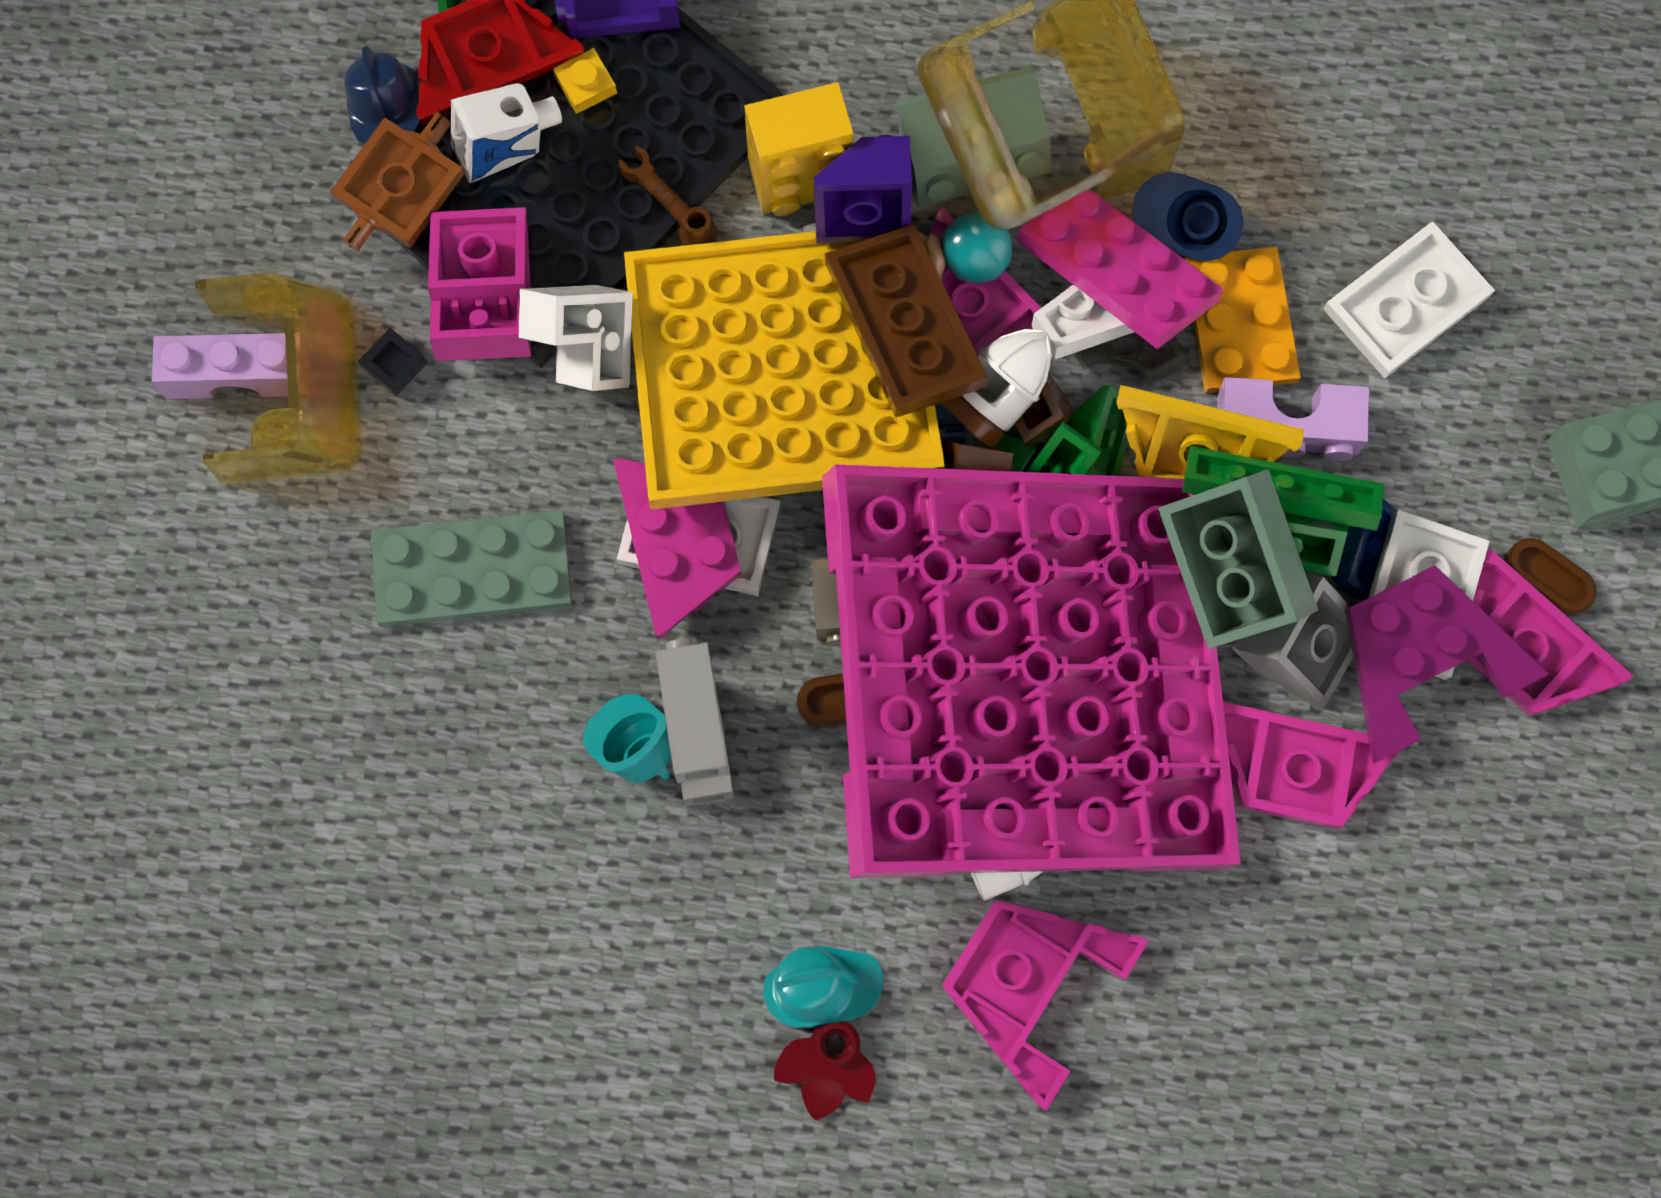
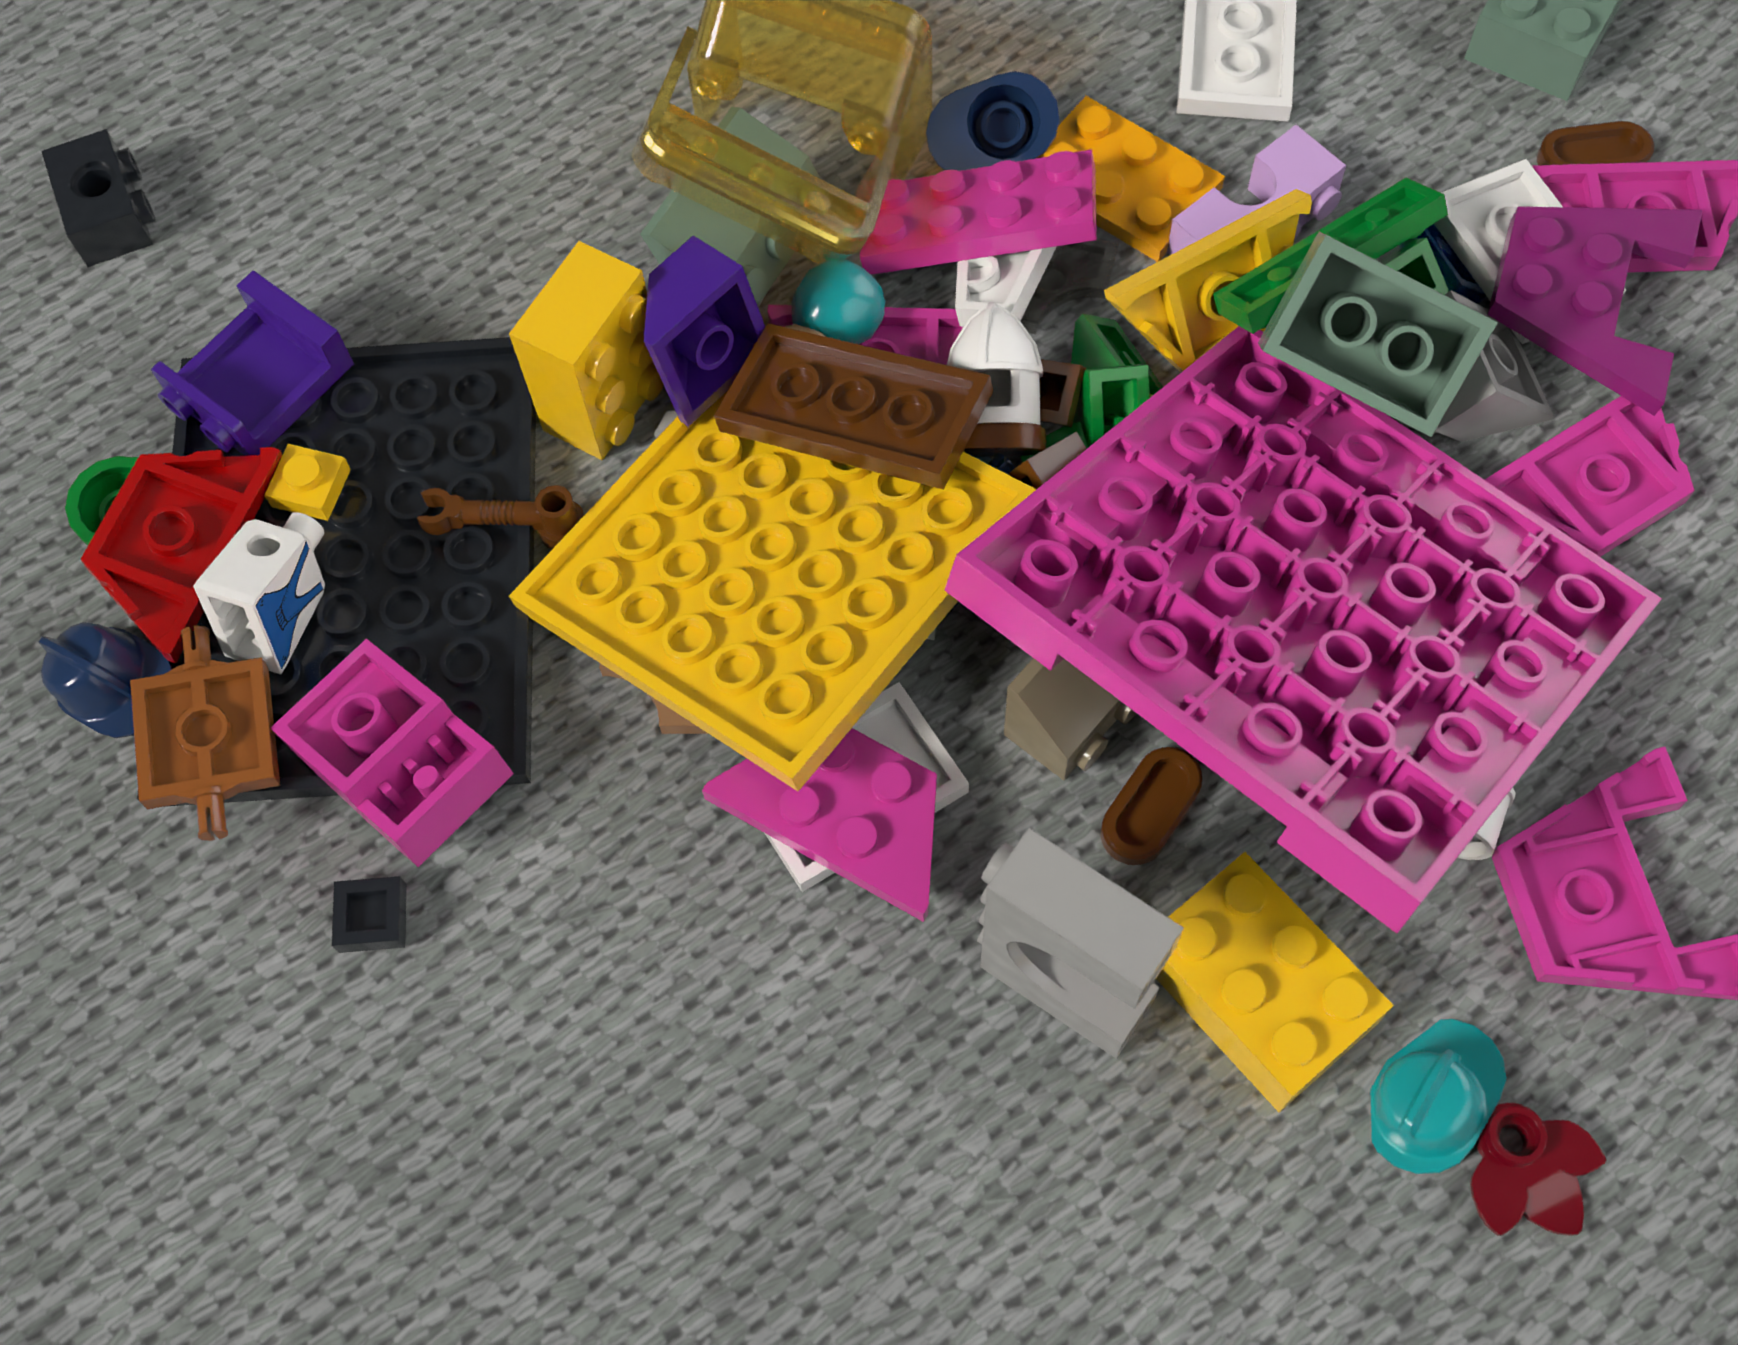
camera: 40 degrees left, 10 degrees down
(200, 363) = (155, 1107): lavender arch -> none
(323, 418) = (359, 1045): clear yellow windscreen -> none
(471, 568) = (657, 1040): sand green plate -> none
(589, 329) = (554, 692): white brick -> none
(629, 739) = (1000, 1041): teal piece -> none
(792, 841) = (1267, 982): none -> yellow brick

